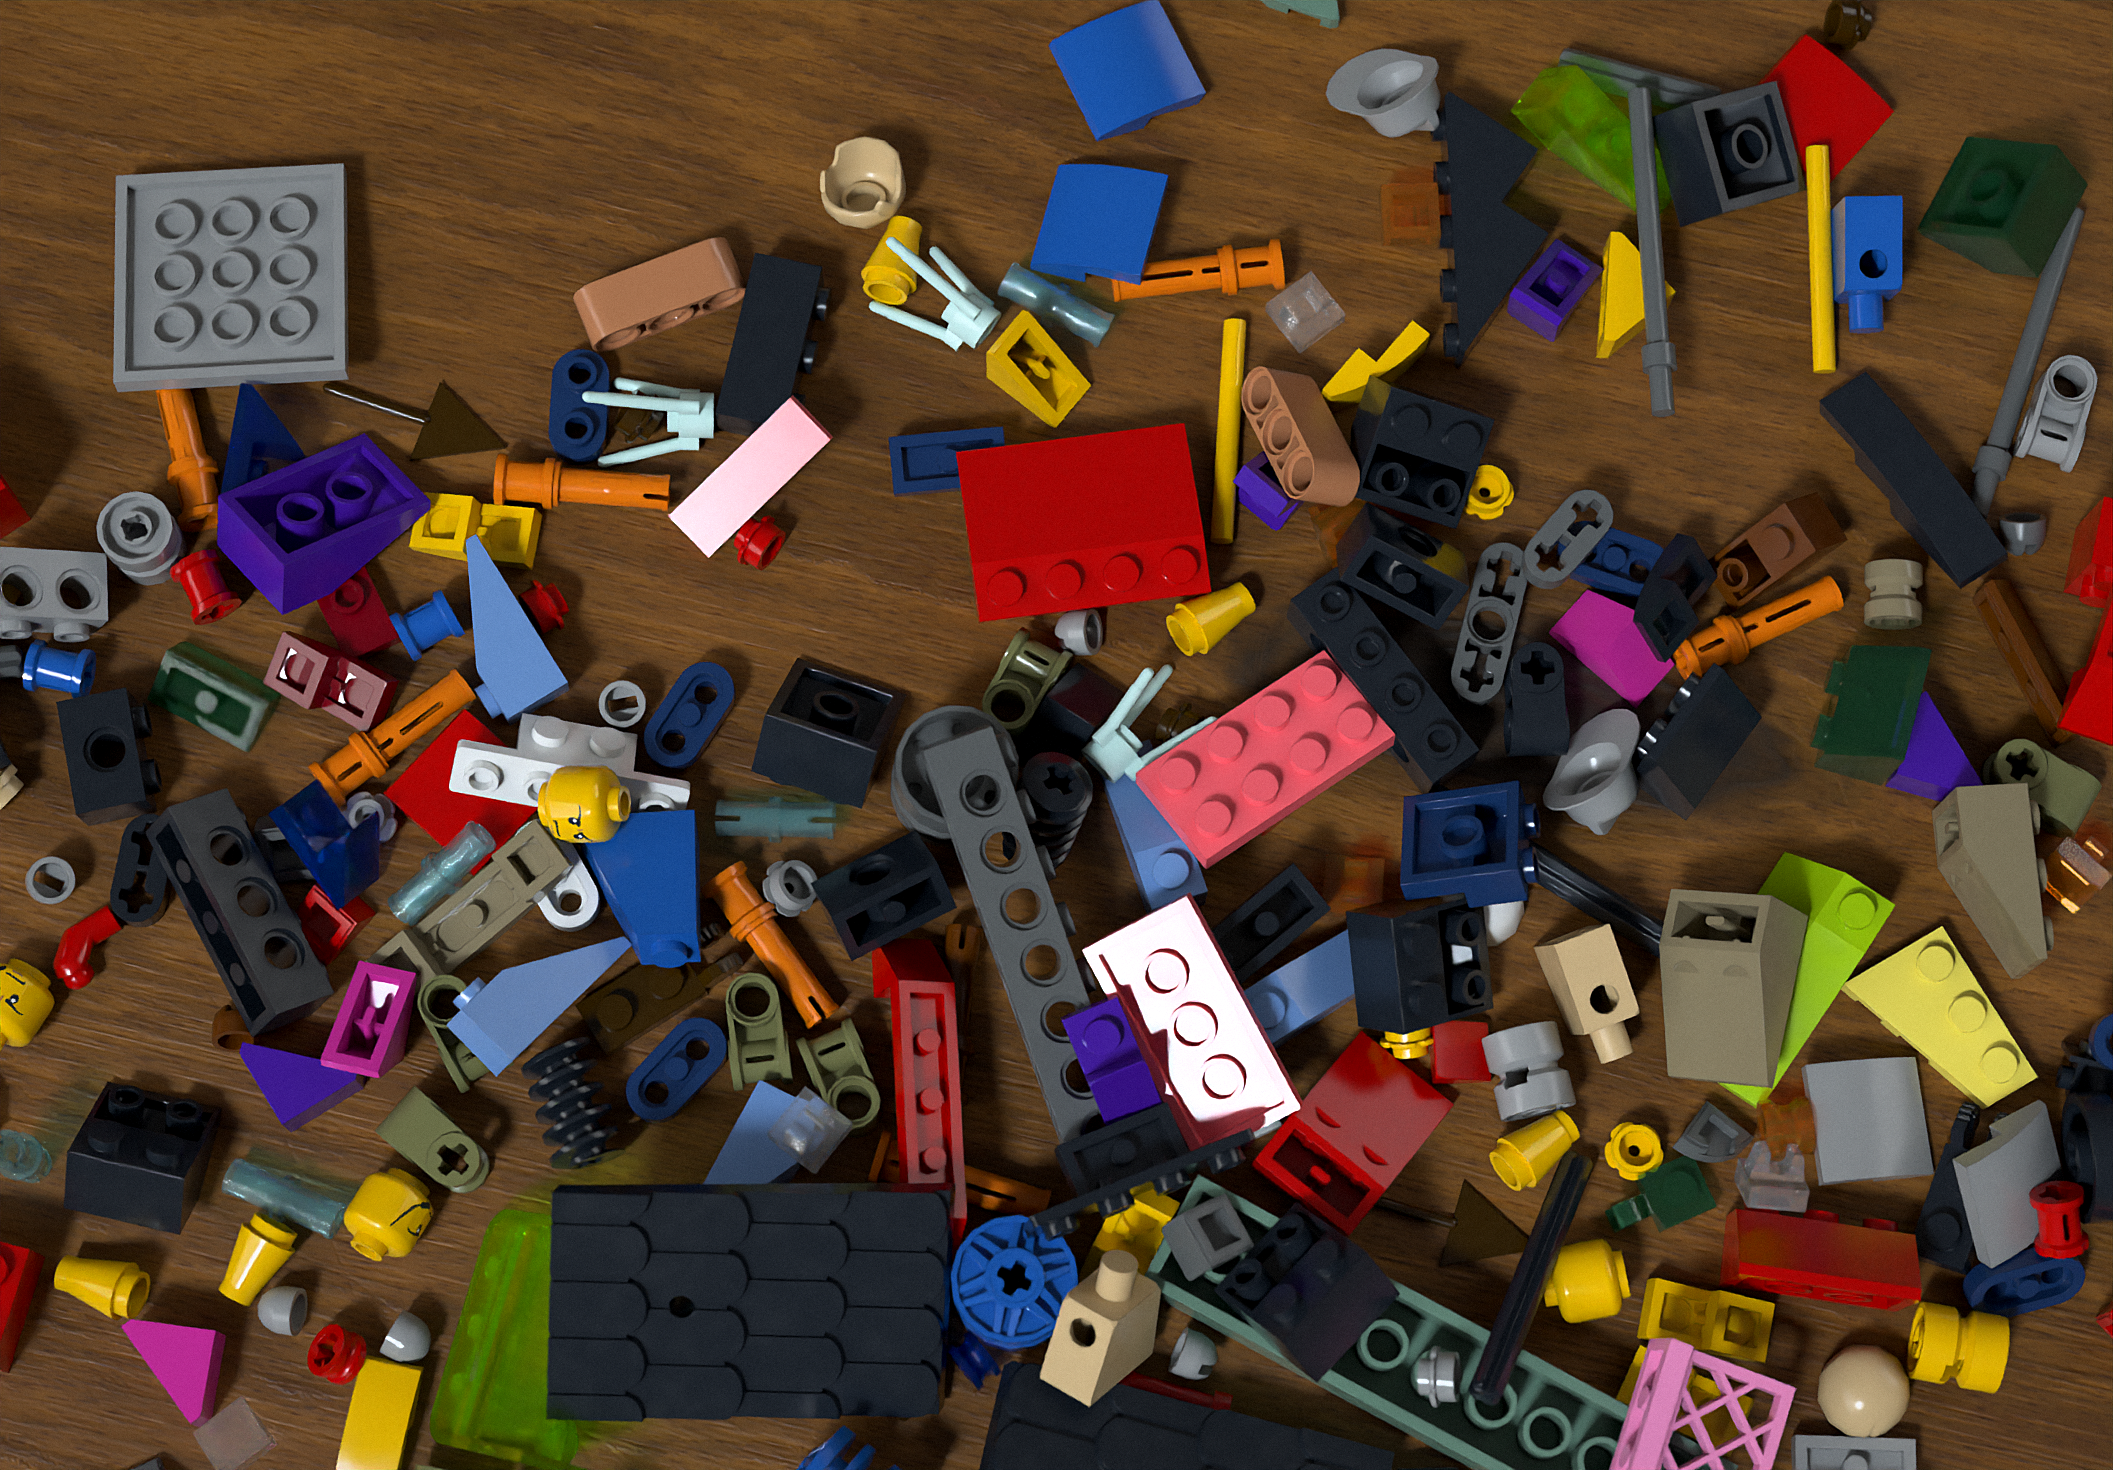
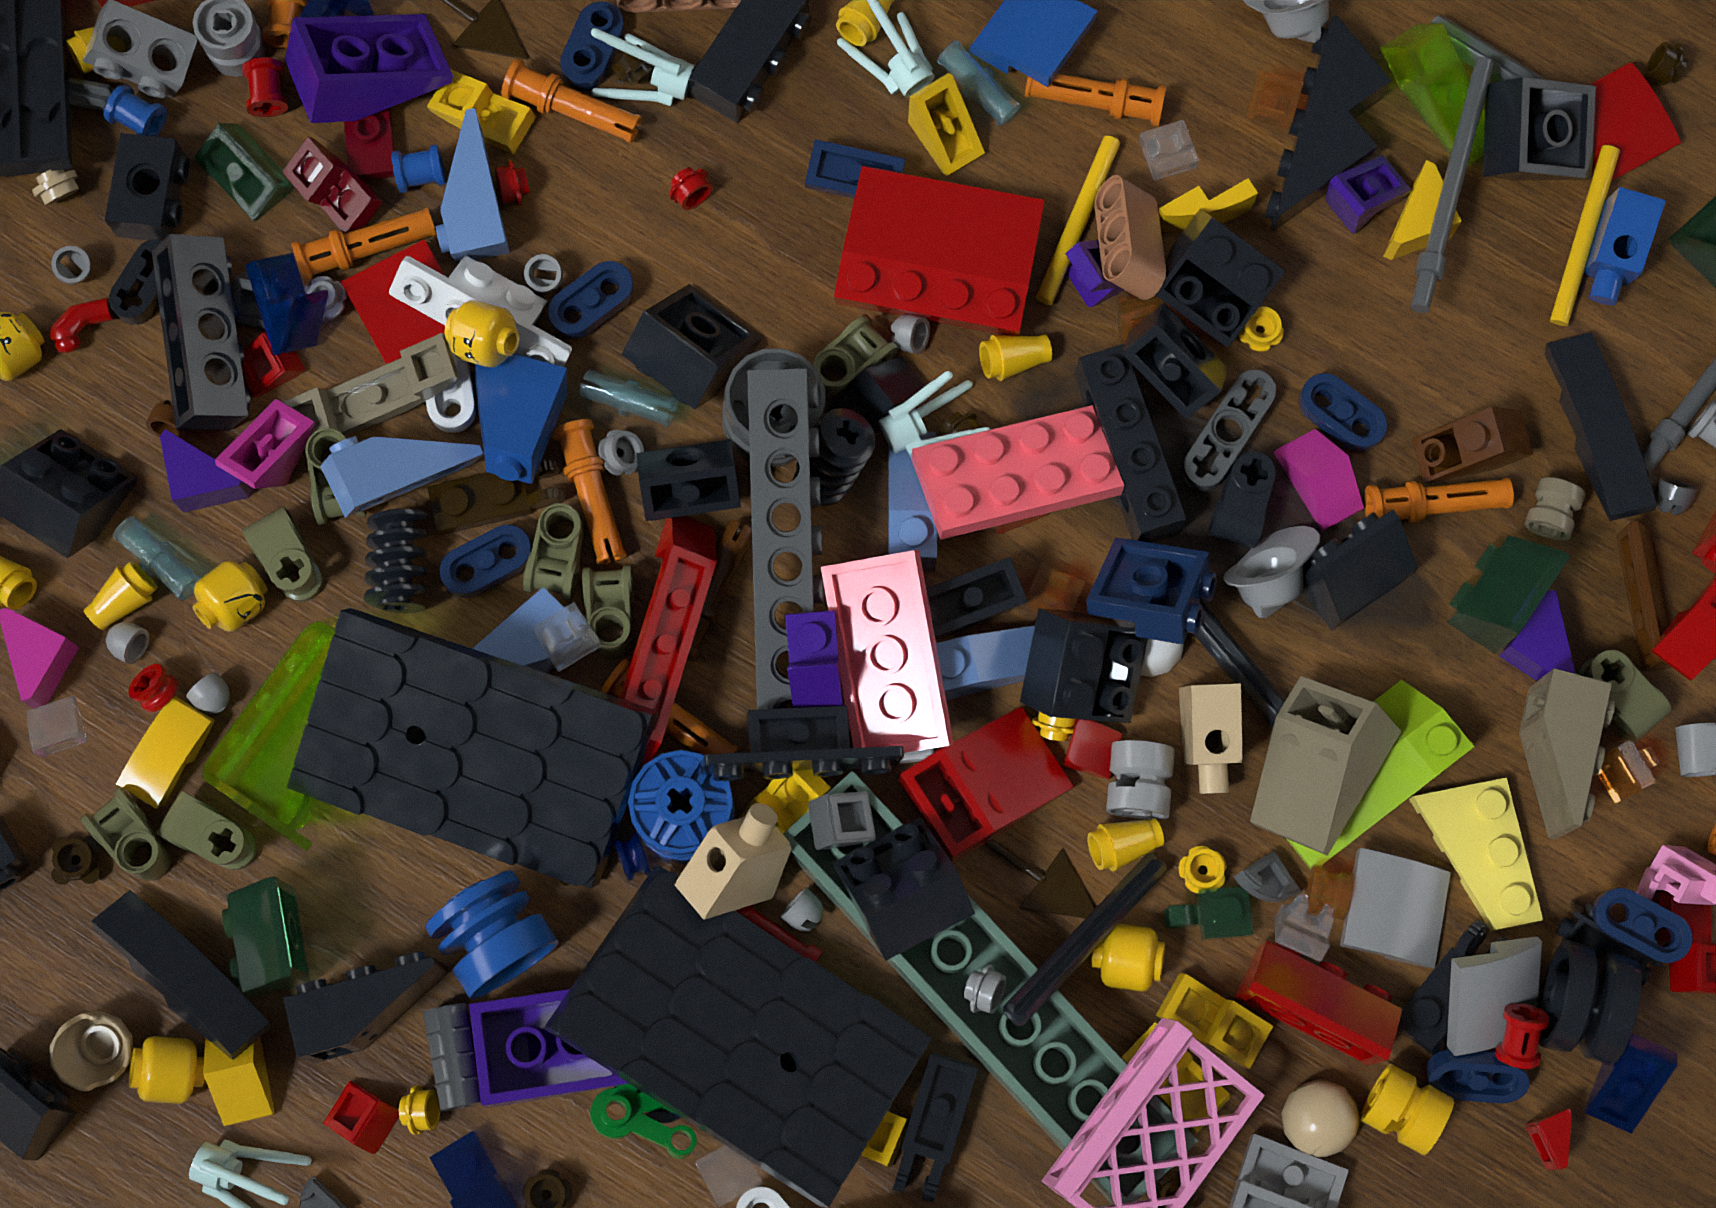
camera: 20 degrees right, 0 degrees up
(441, 873) = (361, 354): clear light blue pin -> none
(750, 476) = (700, 134): tile -> none
(1577, 547) = (1306, 373): dark grey beam -> none
(1669, 593) = (1377, 450): black slope -> none

